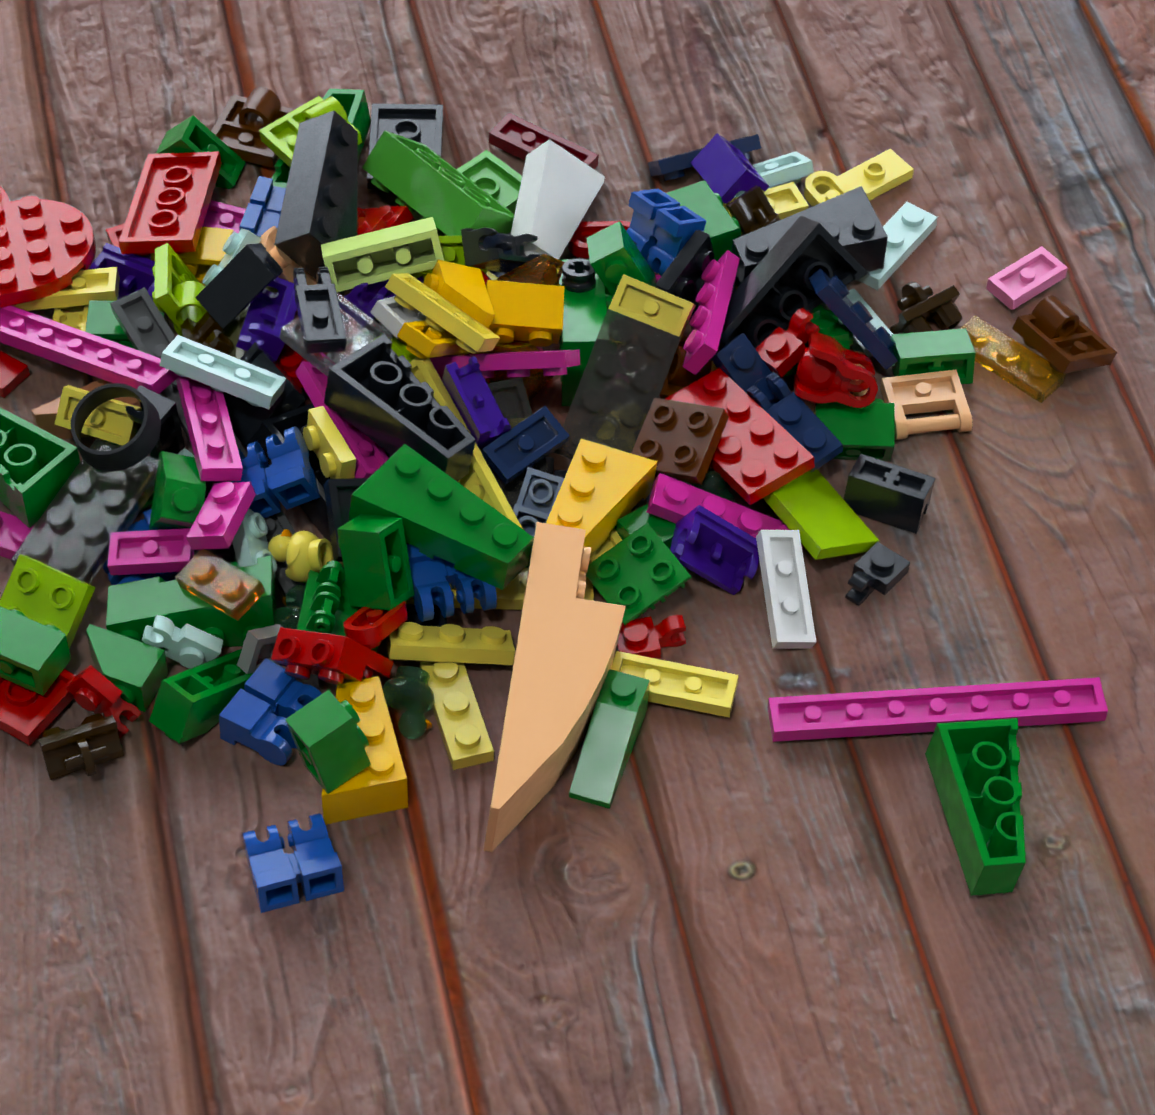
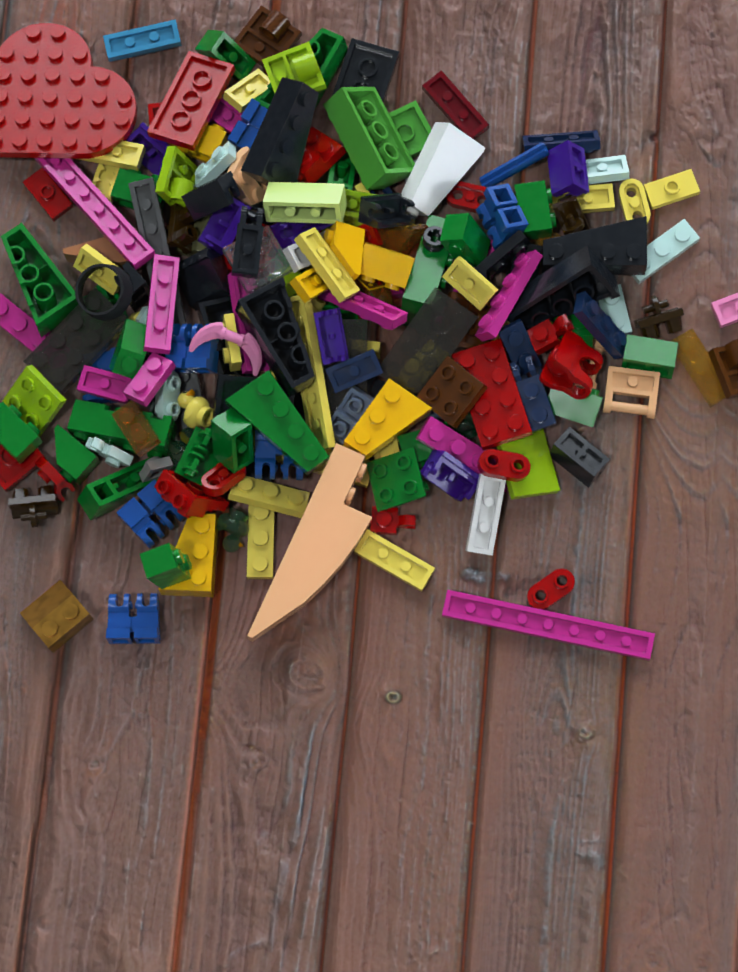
camera: 25 degrees right, 25 degrees up
(74, 166) = (142, 40): none -> dark azure plate
(166, 889) = (56, 616): none -> pearl gold slope
(222, 372) = (179, 267): light aqua plate -> none
(239, 185) = (246, 89): none -> light yellow plate
(308, 424) = (218, 331): none -> bright pink piece
(610, 738) = (343, 590): slope -> none
(662, 178) = (514, 165): none -> blue axle
(789, 511) = (504, 465): none -> red plate
(876, 570) = (551, 510): black plate -> none
(921, 663) = (551, 589): none -> red plate
(981, 798) = (548, 694): green wedge -> none

